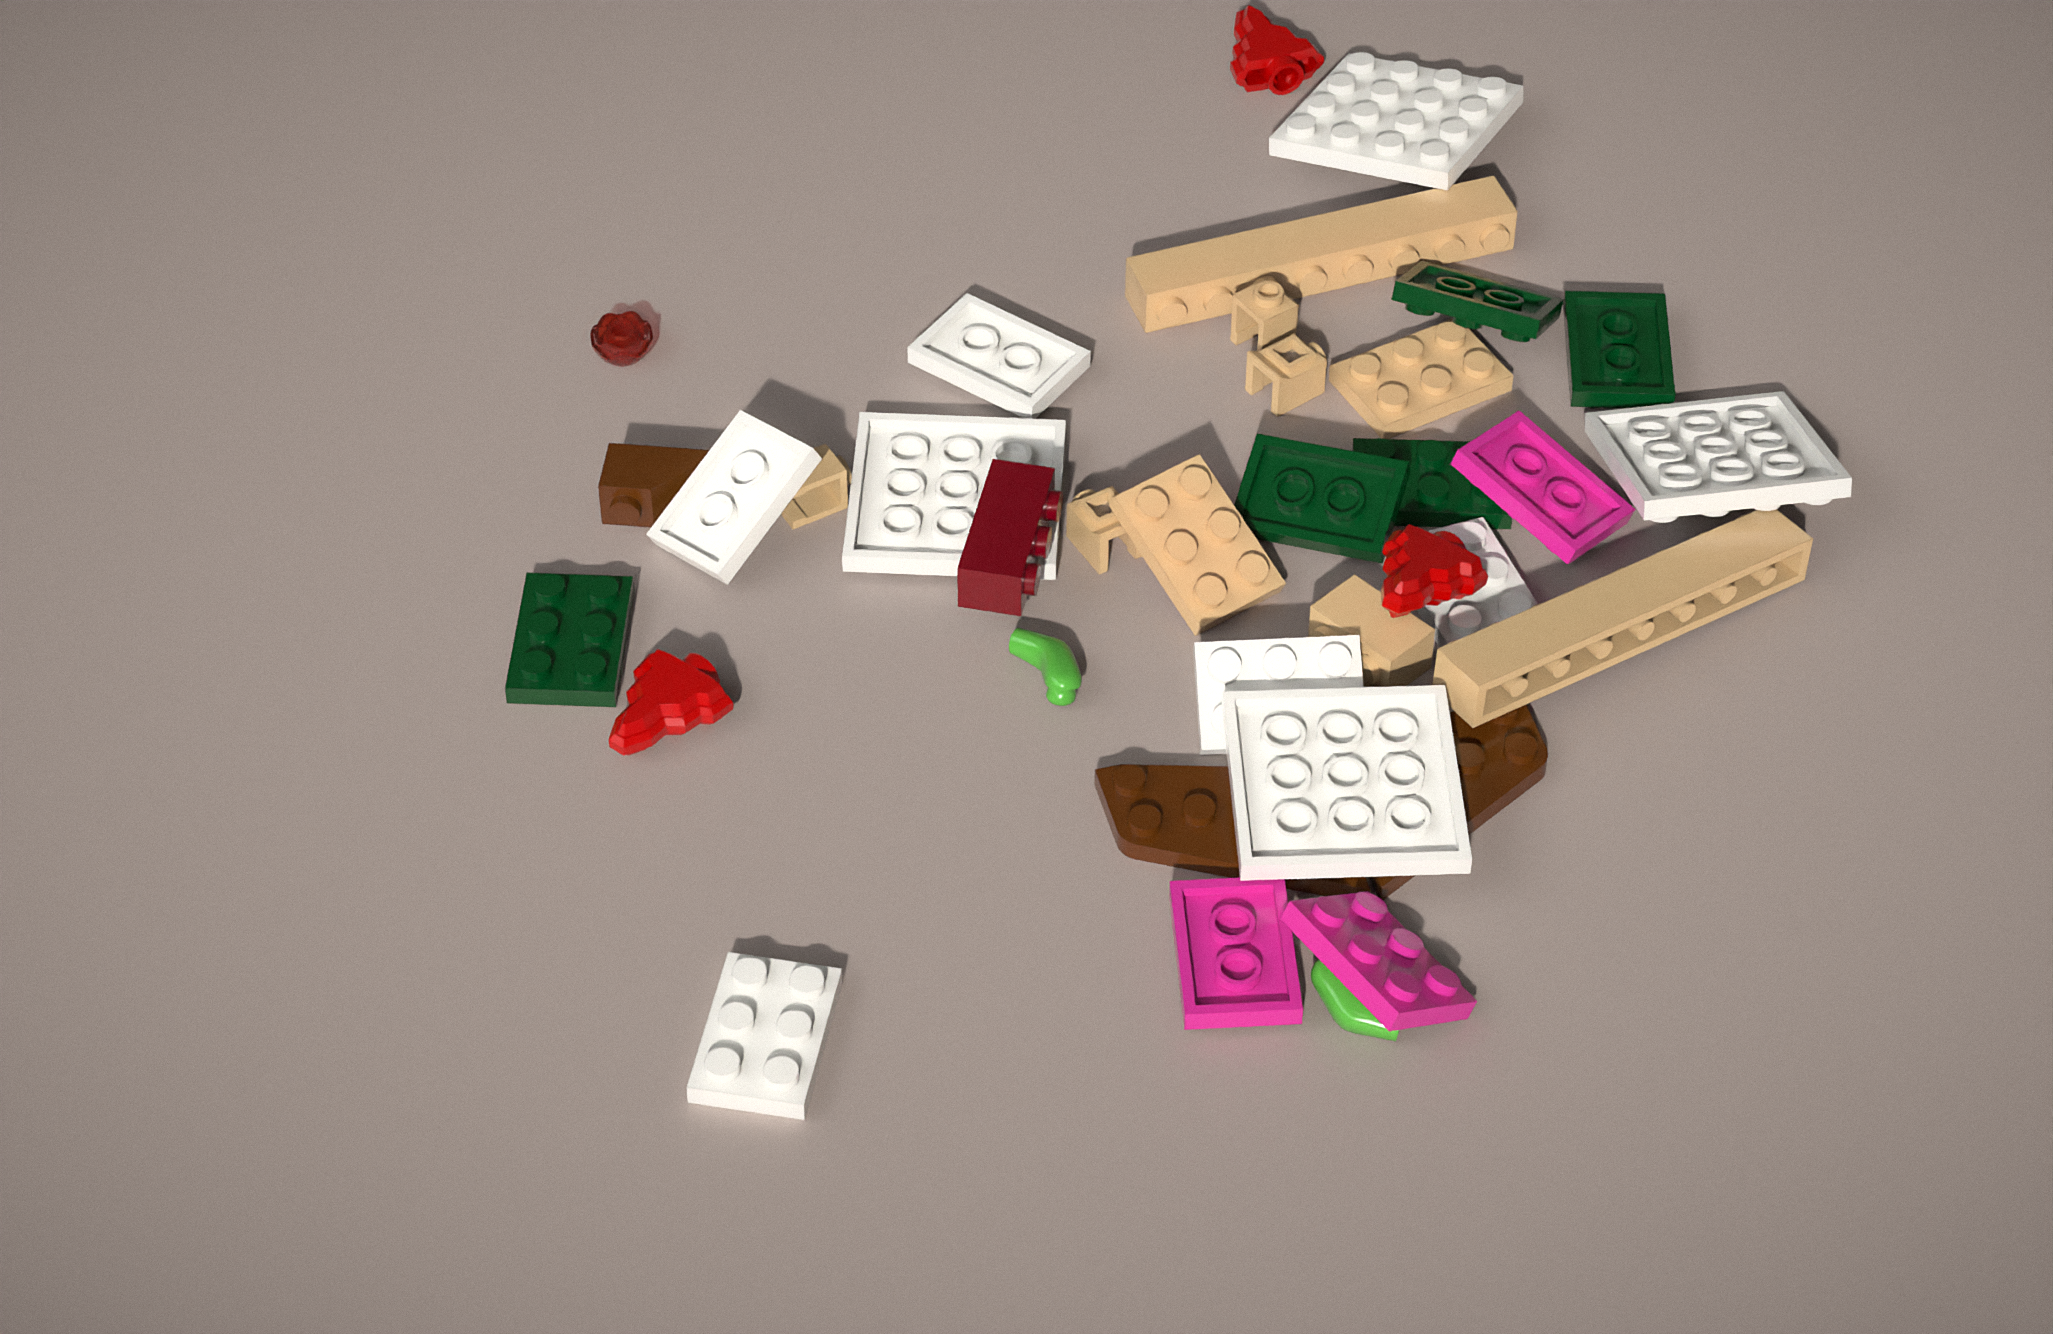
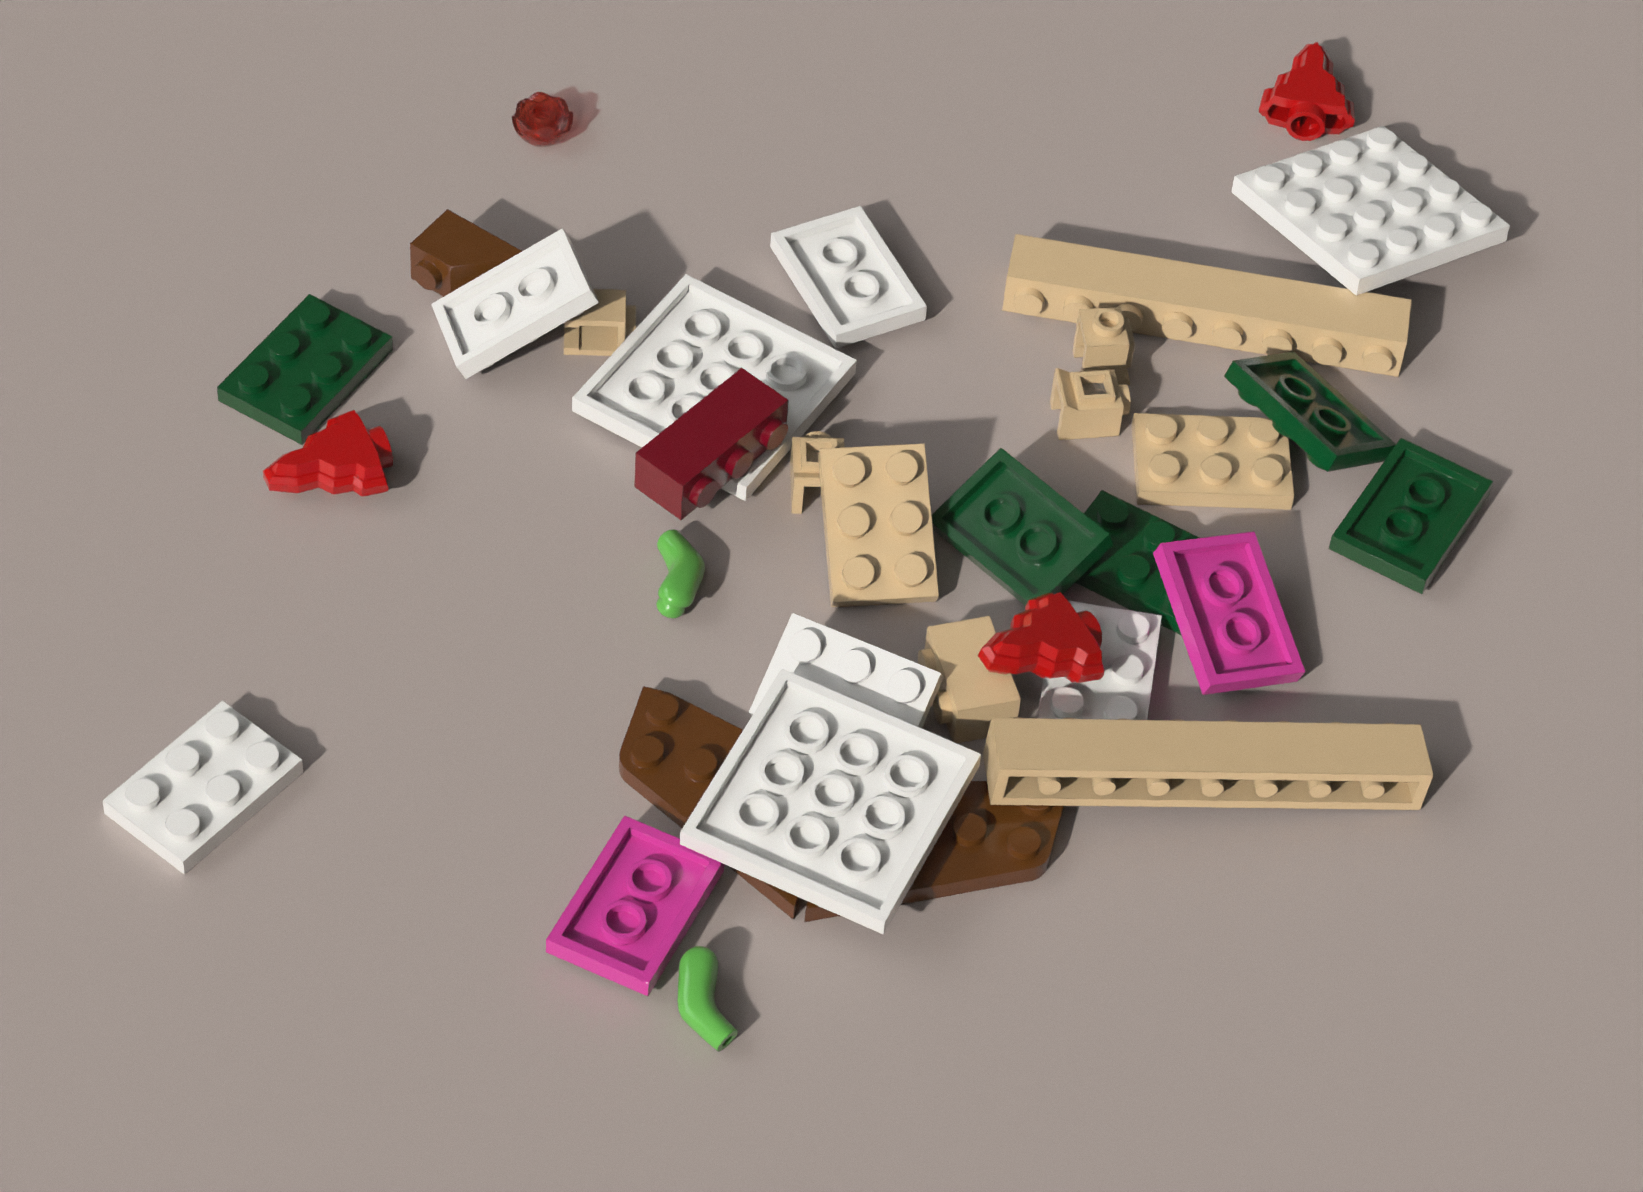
camera: 25 degrees right, 5 degrees up
(1379, 960) = (745, 973): dark pink plate -> none
(1717, 456) = (1409, 656): white plate -> none

